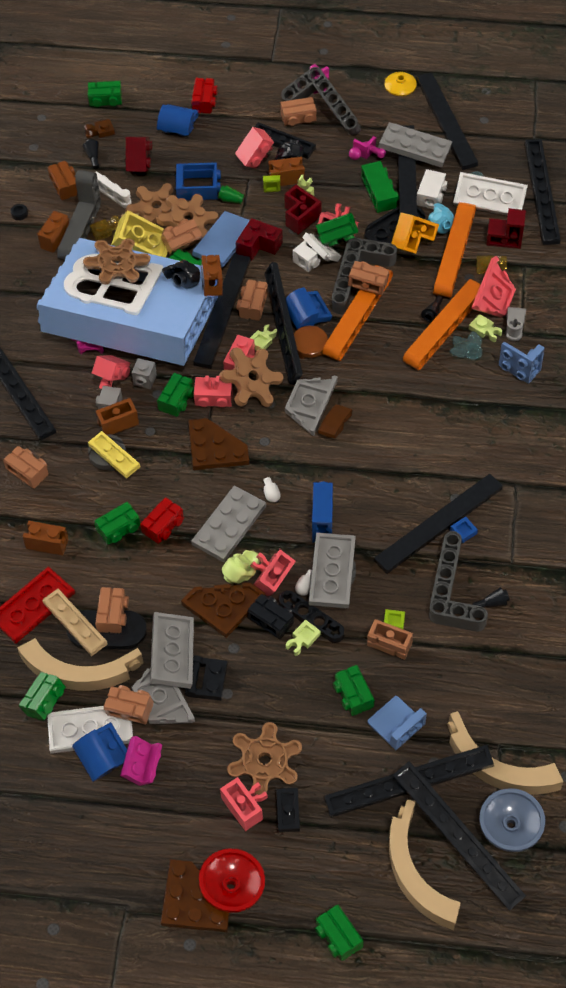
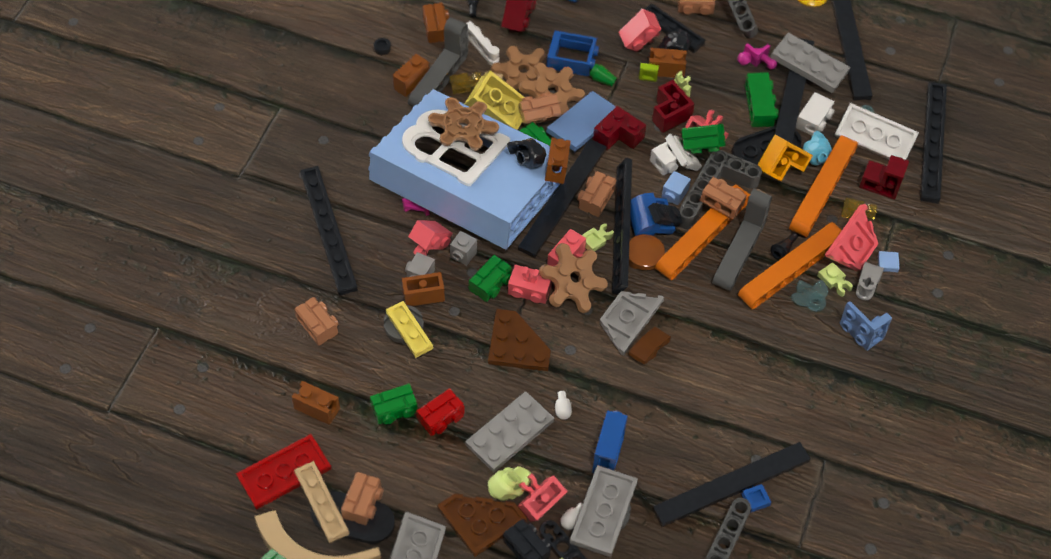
camera: 10 degrees right, 0 degrees up
(320, 303) = (665, 214): none -> black plate
(323, 279) = (676, 188): none -> light blue brick
(396, 310) = (744, 240): none -> dark grey beam
(529, 302) = (888, 261): none -> light blue tile

